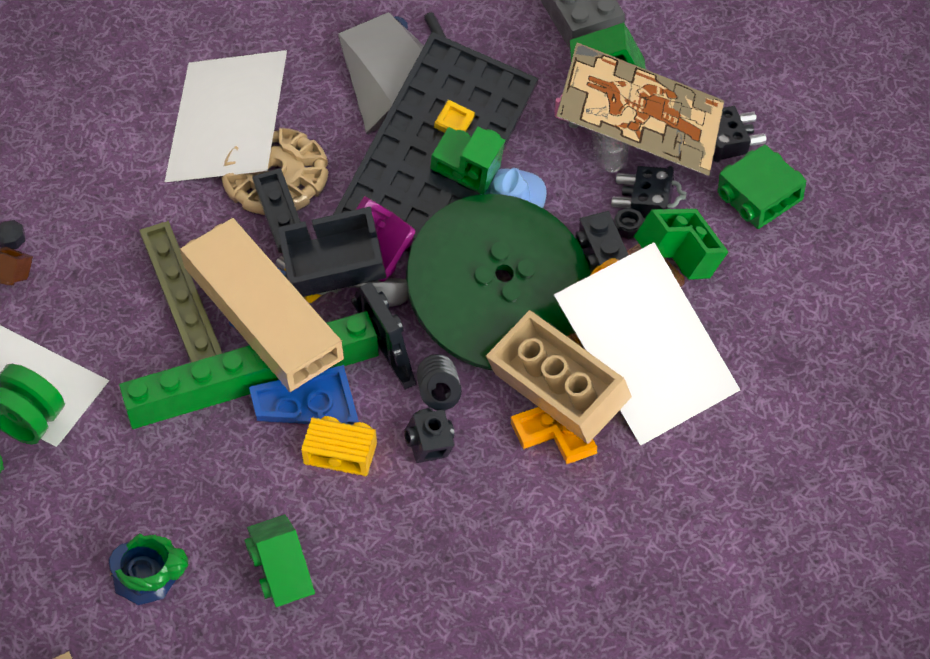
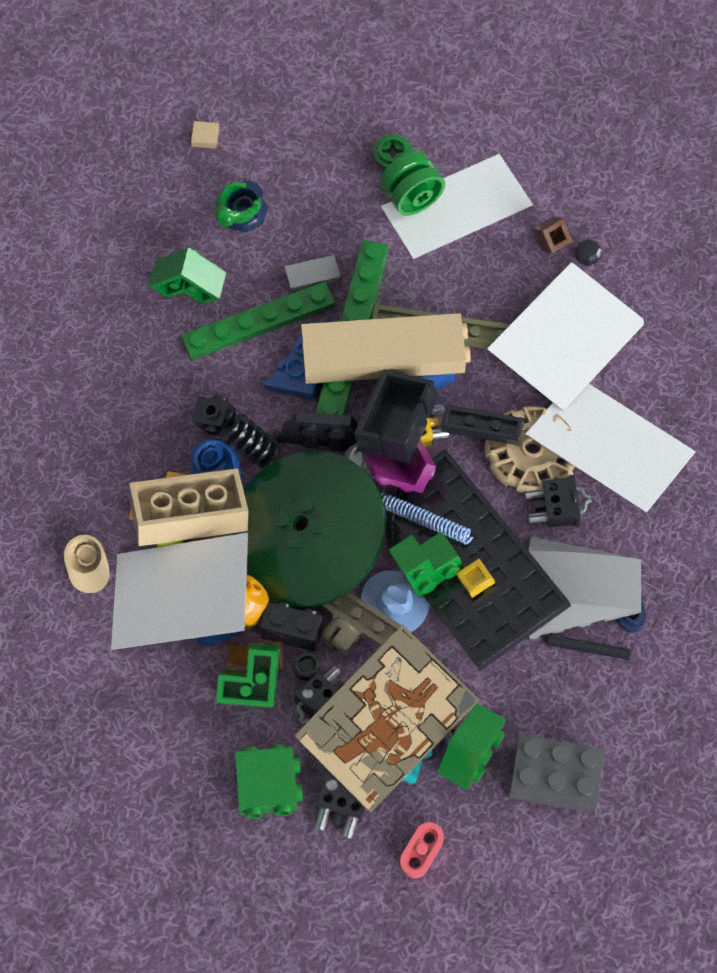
camera: 120 degrees right, 10 degrees up
(126, 201) = (566, 336): none -> white sticker
(189, 455) = (312, 273): none -> light grey tile
(284, 474) = (258, 320): none -> green plate
(319, 122) = (558, 502): none -> black piece
(339, 445) = (251, 361): yellow brick -> none
(412, 192) = (414, 518): none -> light blue piece
(485, 405) = (218, 457): none -> blue hair
(554, 192) = (353, 621): none -> dark tan plate
(675, 453) = (86, 563): none -> tan cap
(720, 61) = (420, 850): none -> coral plate

